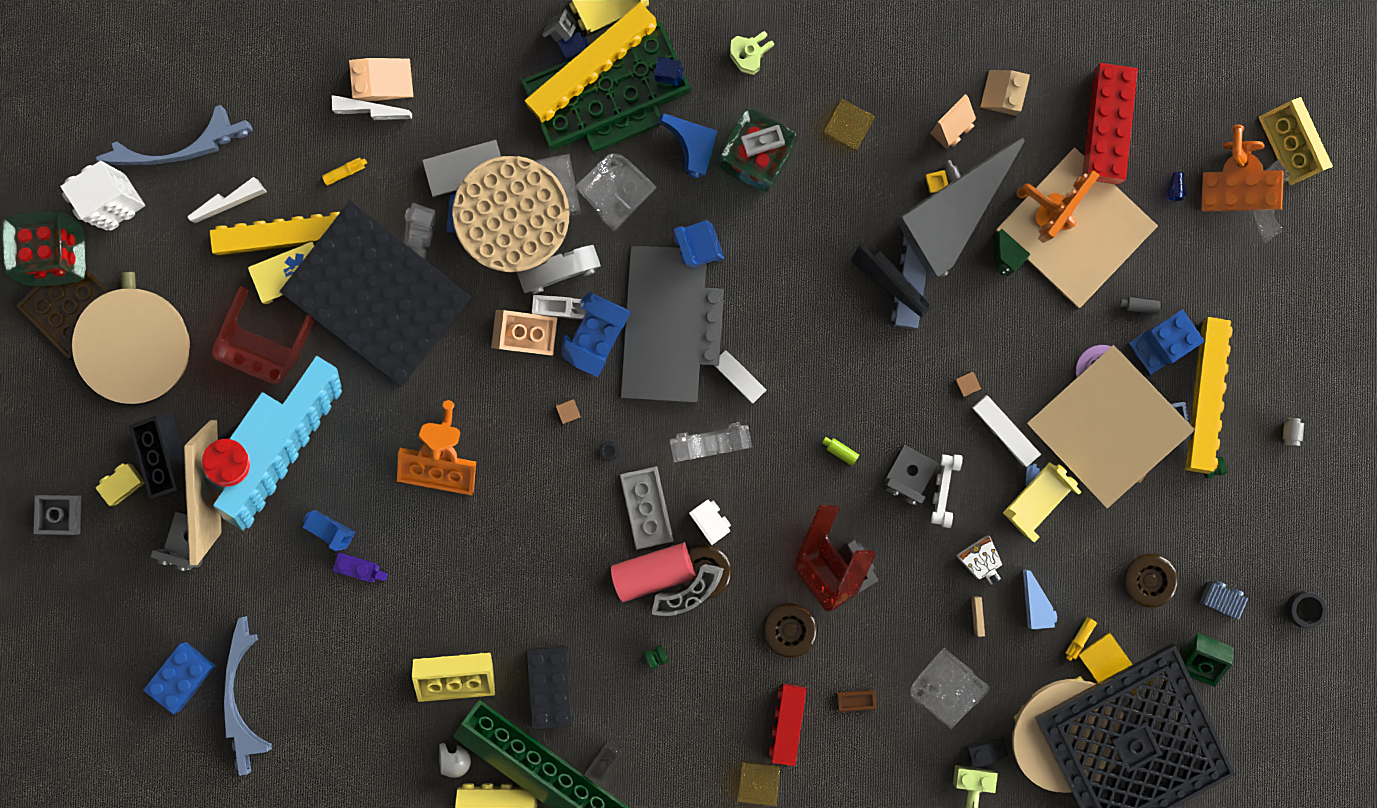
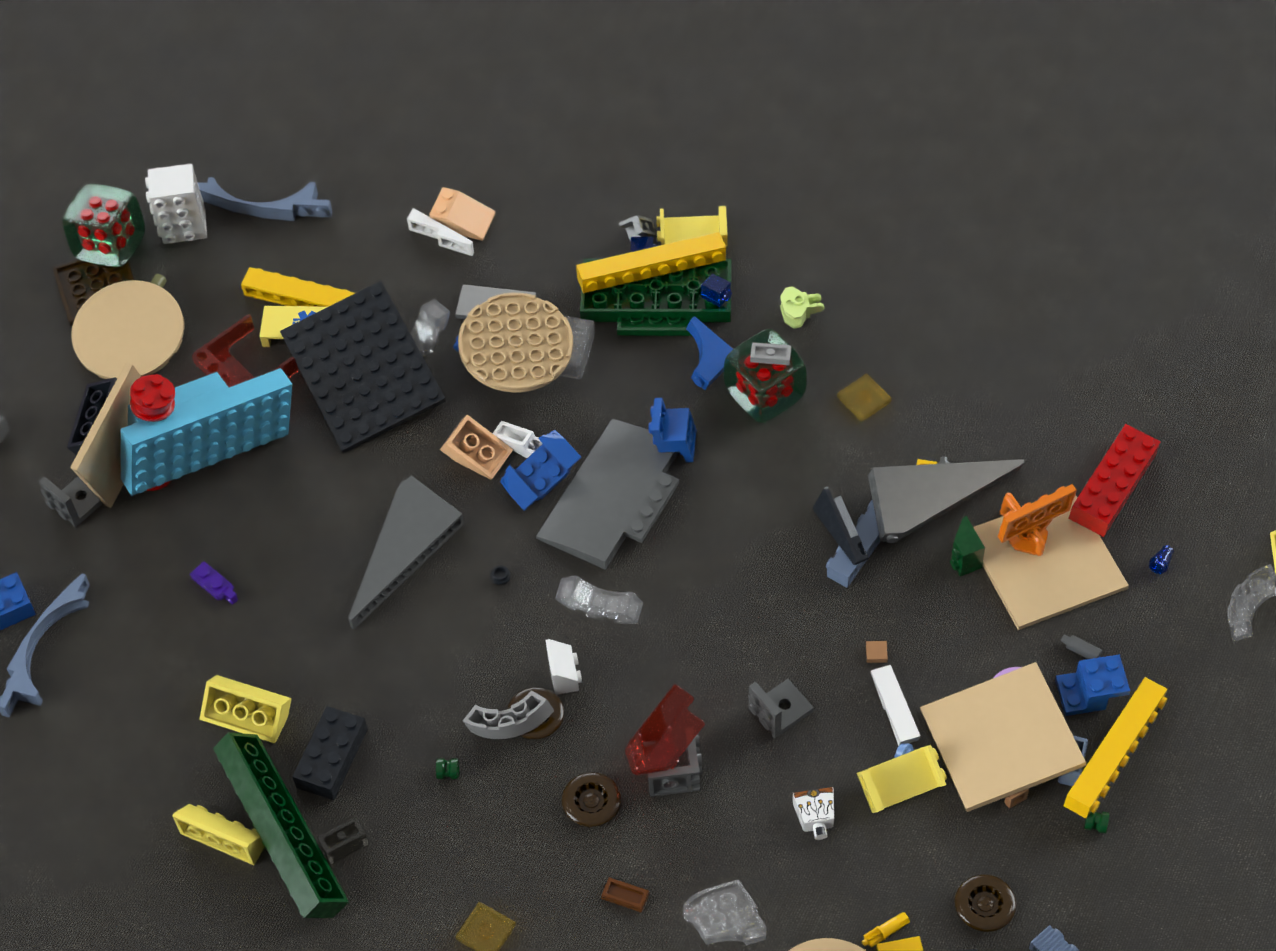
camera: 30 degrees right, 30 degrees down
(120, 484) = (49, 432): light yellow brick -> none
(219, 204) = (268, 255): white slope -> none
(329, 530) = (208, 537): blue arch -> none
(344, 171) = (391, 270): yellow piece -> none
(435, 468) = (334, 516): orange plate -> none
(453, 764) = (200, 780): light grey helmet -> none
(510, 446) = (411, 533): none -> dark grey slope
(558, 268) = (536, 406): light grey brick -> none
(568, 411) = (481, 529): medium nougat tile -> none
(615, 190) = (620, 366): clear slope -> none
(646, 507) = (509, 638): light grey tile -> none
(652, 572) = (485, 689): coral brick -> none
(740, 377) = (657, 561): white slope -> none
(788, 725) = (544, 884): red brick -> none
(840, 450) = (722, 660): lime cylinder -> none
(939, 499) = (795, 750): white plate -> none
(954, 123) = (962, 420): light nougat slope -> none
(978, 620) = (787, 862): tan tile -> none
(1005, 91) = (1026, 422): tan slope -> none
(1038, 608) = (854, 879): light blue slope -> none
(1243, 186) = (1231, 571): orange plate -> none
(1293, 432) = (1195, 821): light grey brick -> none

